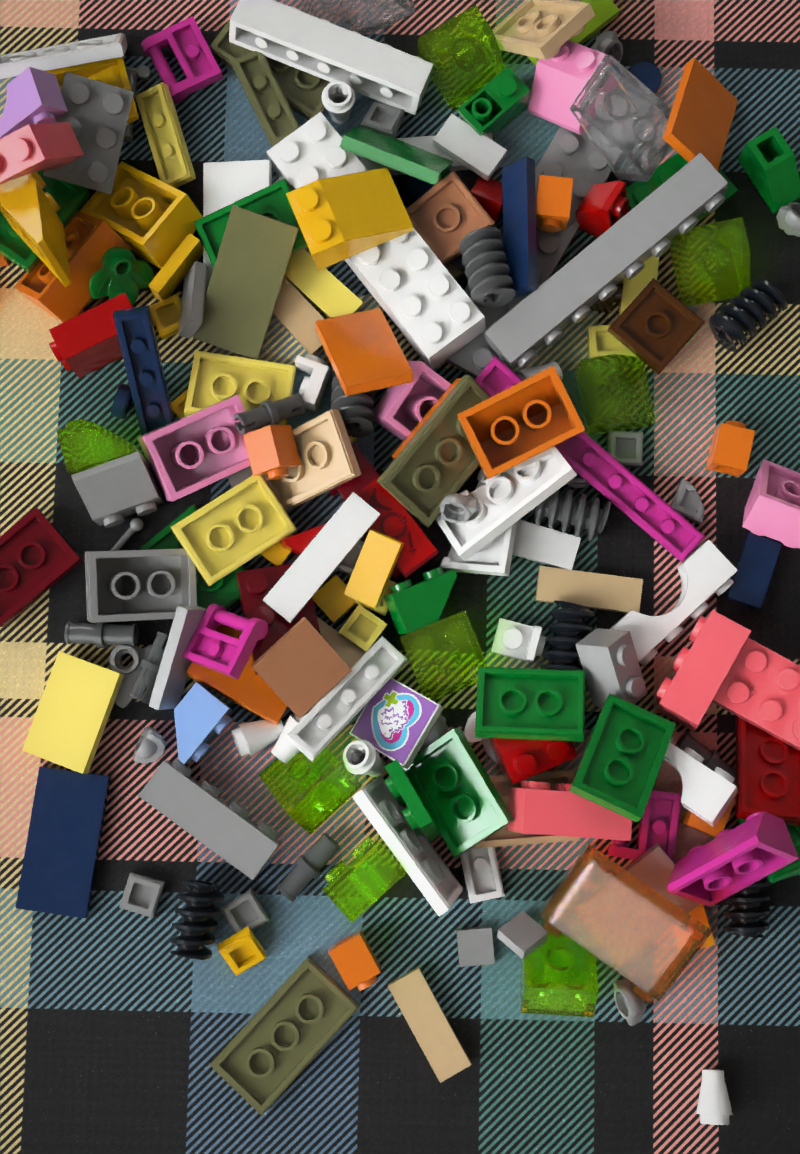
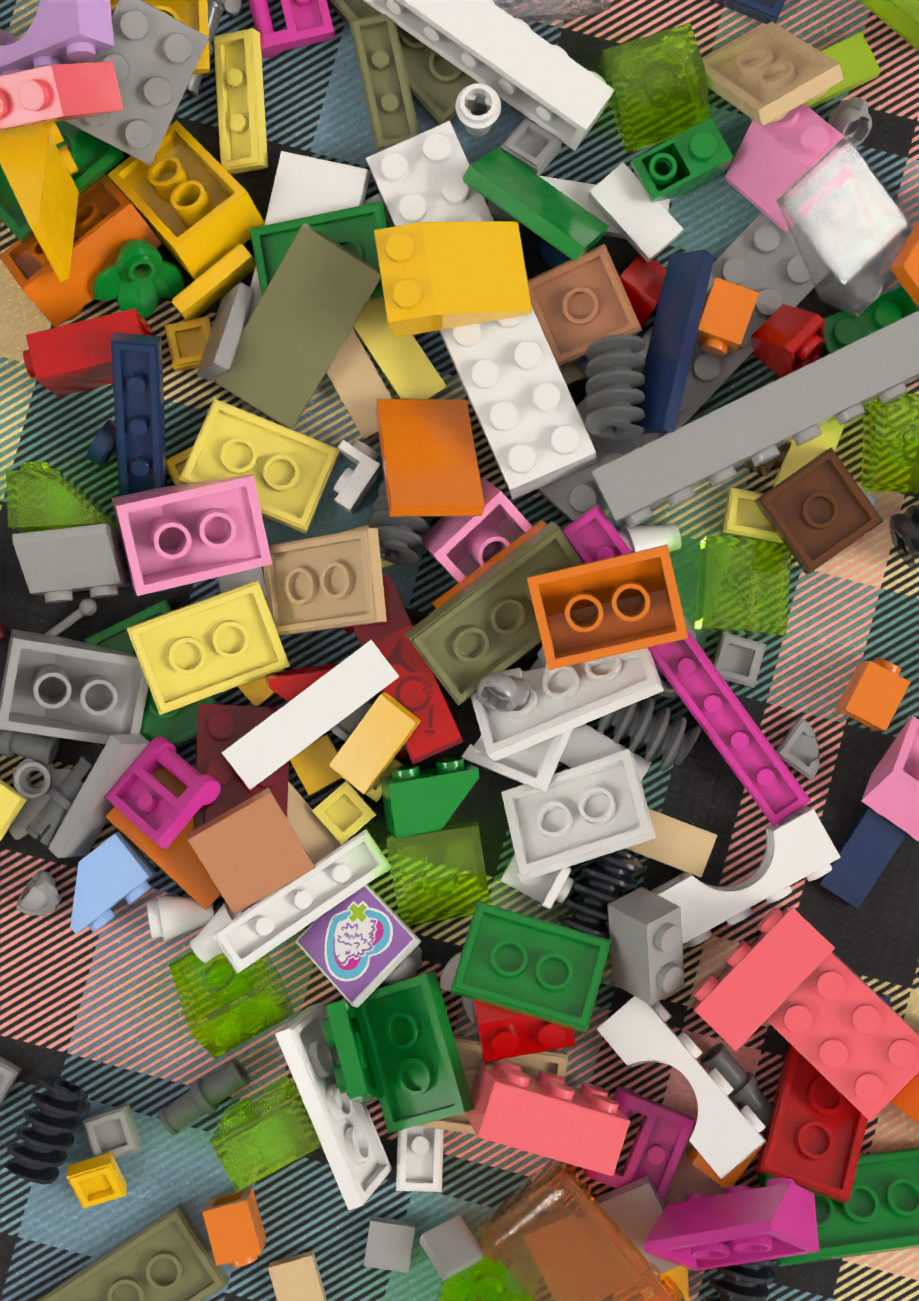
camera: 15 degrees right, 5 degrees up
(209, 818) = (95, 1007): light grey brick -> none
(269, 413) = (288, 509): dark grey pin -> none
(272, 451) = (280, 561): orange brick -> none
(363, 759) = (303, 981): white cone -> none
(537, 586) = (579, 816): none -> white plate
(623, 758) = (629, 1070): green plate -> none
(648, 75) = (893, 171): dark blue tile -> none

